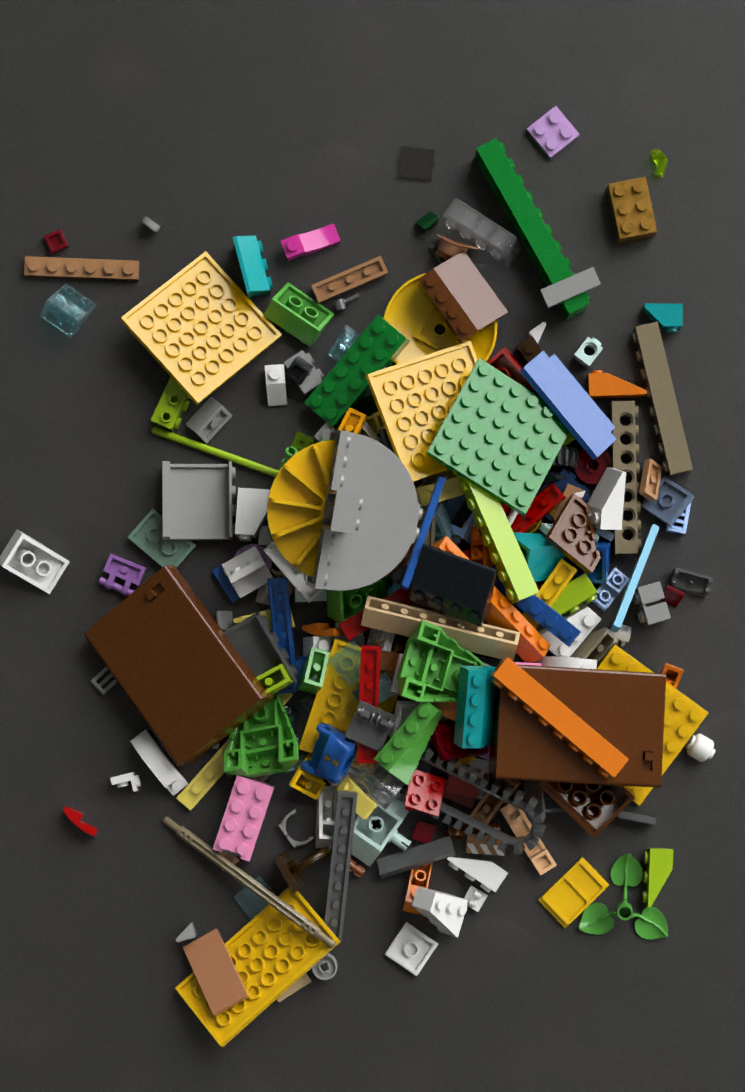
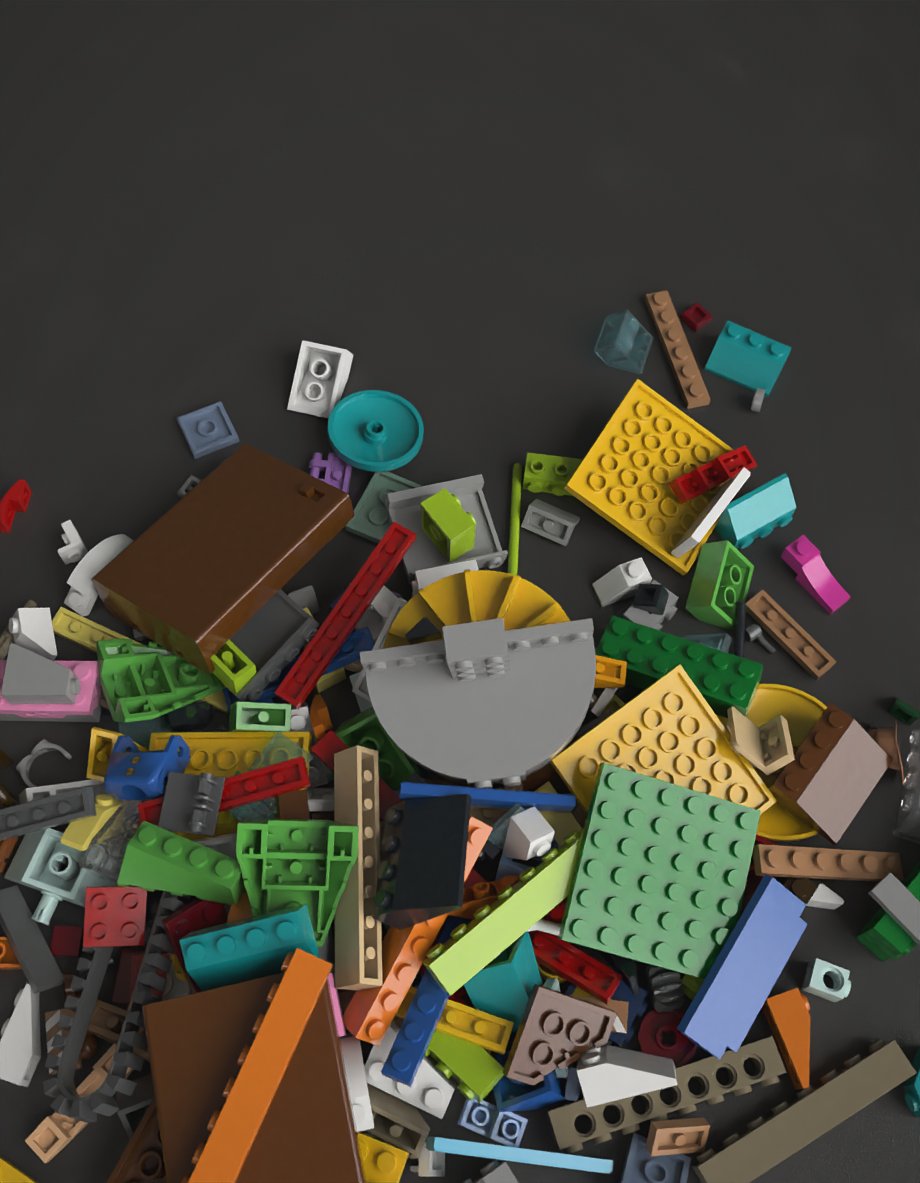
camera: 75 degrees right, 20 degrees down
(50, 660) = (208, 429): none -> sand blue tile
(95, 530) = (375, 430): none -> teal dish
(111, 217) = (747, 358): none -> teal slope
(196, 818) = (34, 631): none -> white slope
(201, 498) = (448, 524): none -> lime brick
(212, 287) = (712, 474): none -> red slope
(244, 816) = (37, 679): none -> light grey slope
(247, 303) = (710, 513): none -> white tile
(256, 590) = (345, 615): none -> red plate
(309, 542) = (423, 632): none -> black slope
(342, 316) = (739, 631): none -> black bar
(431, 337) = (764, 746): none -> tan bracket
(454, 513) = (528, 835): none -> white slope
(519, 322) = (825, 863): none -> medium nougat plate

